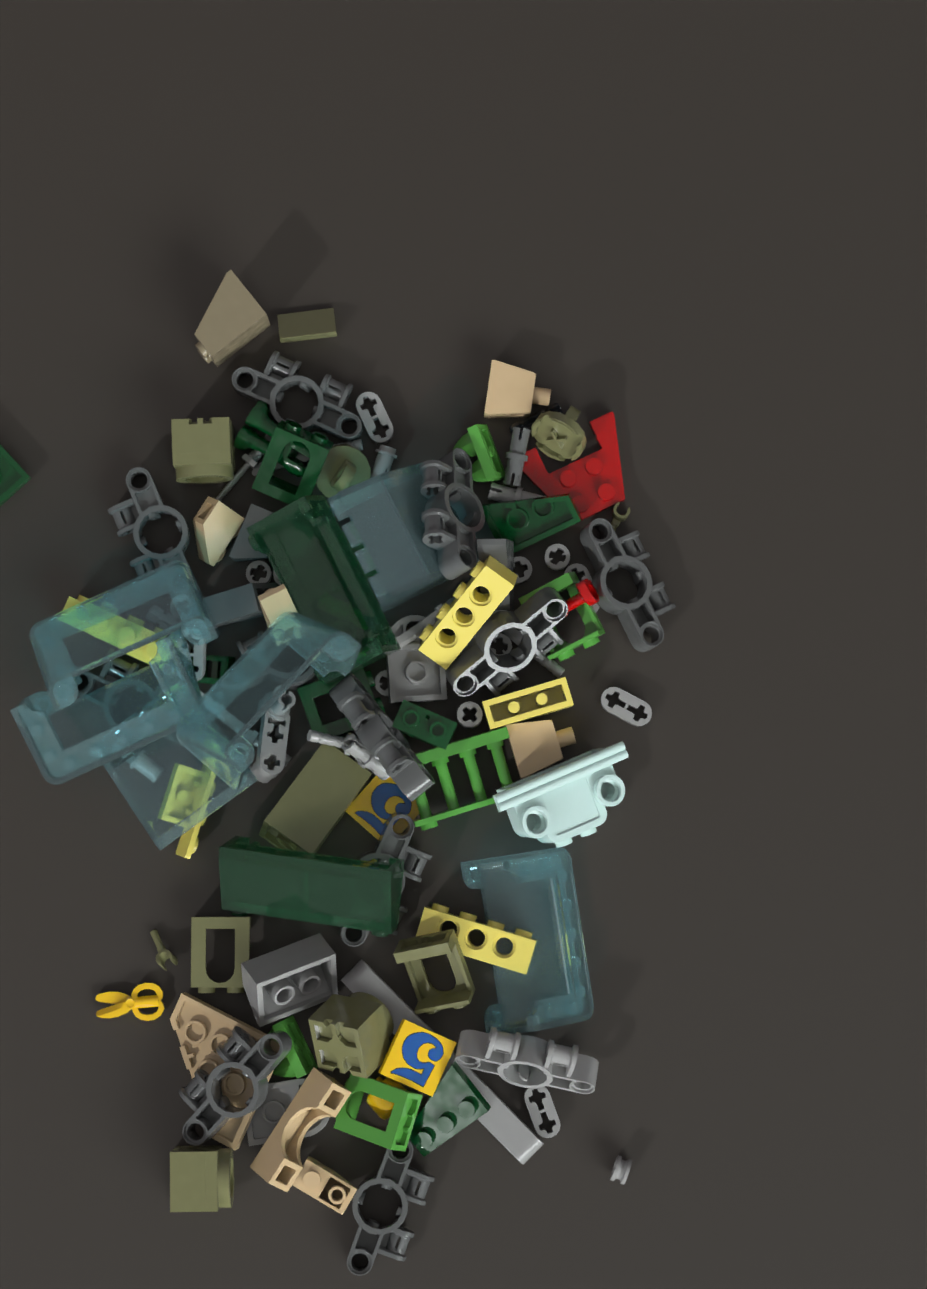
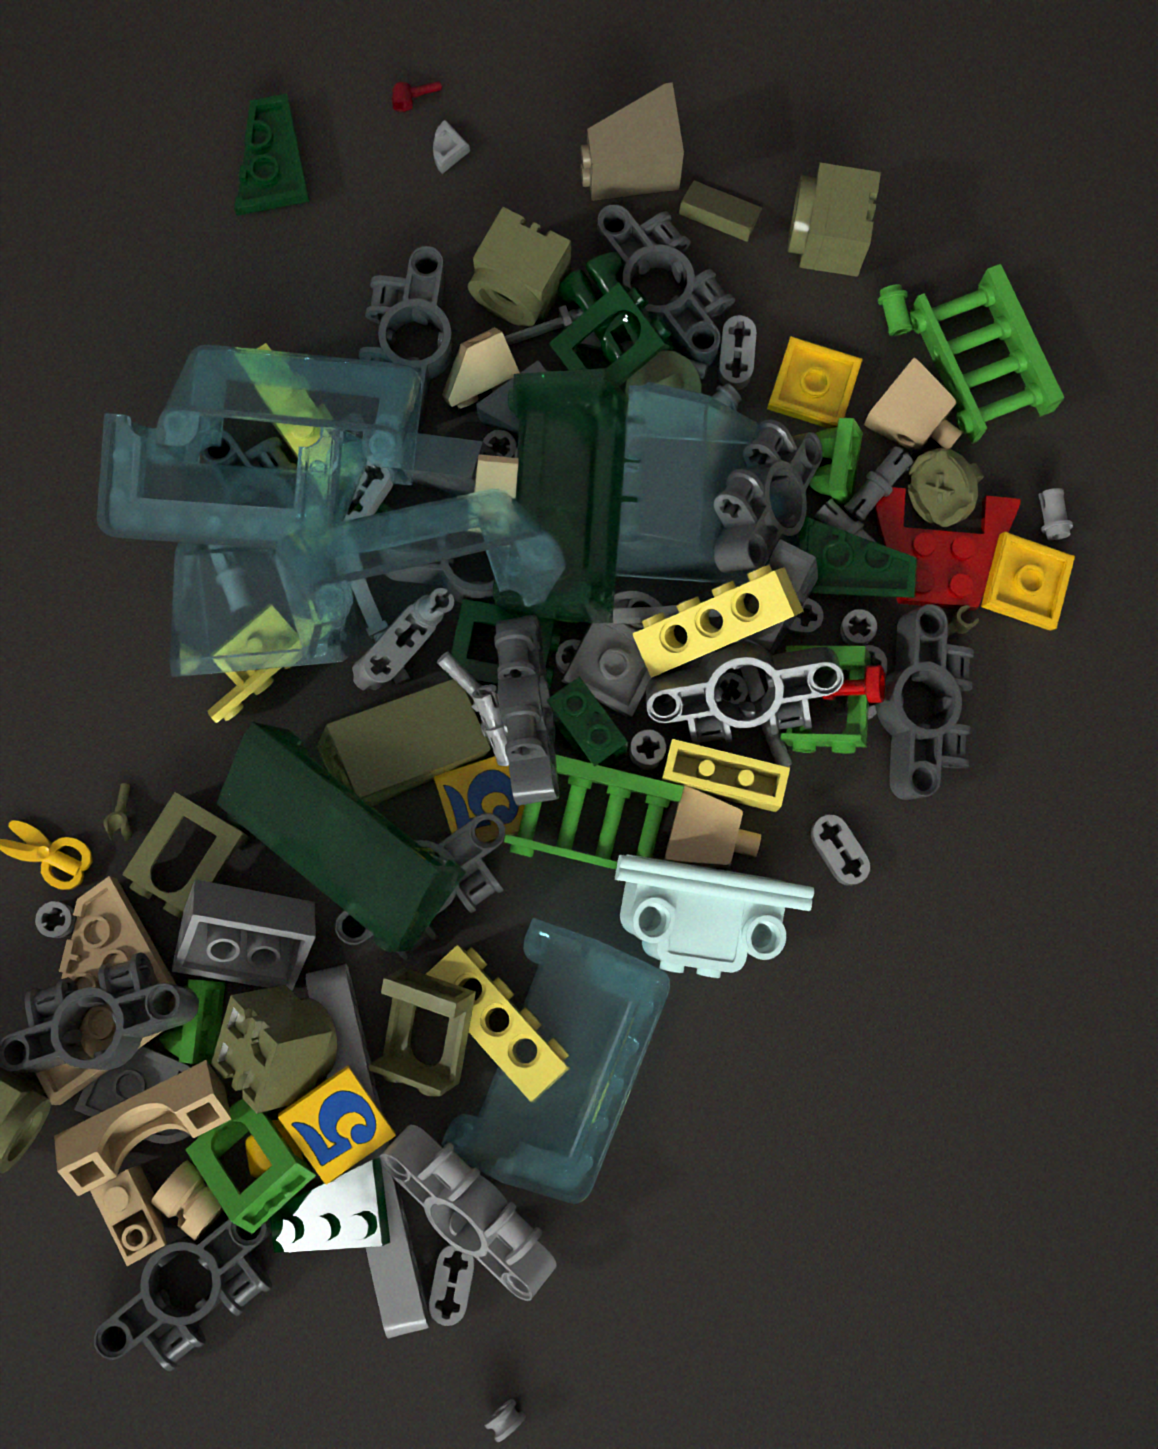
camera: 30 degrees right, 5 degrees down
(48, 367) = (404, 93): none -> dark red hand
(100, 386) = (448, 147): none -> light grey tile
(156, 1034) = (52, 908): none -> light grey bush
(354, 1156) = (189, 1199): none -> tan wheel
(386, 295) = (834, 218): none -> olive piece
(437, 409) = (814, 383): none -> yellow tile
(461, 329) = (895, 309): none -> bright green pin
(539, 298) = (1009, 325): none -> bright green fence
(640, 408) = (1054, 514): none -> light grey pin
(647, 463) = (1027, 581): none -> yellow tile

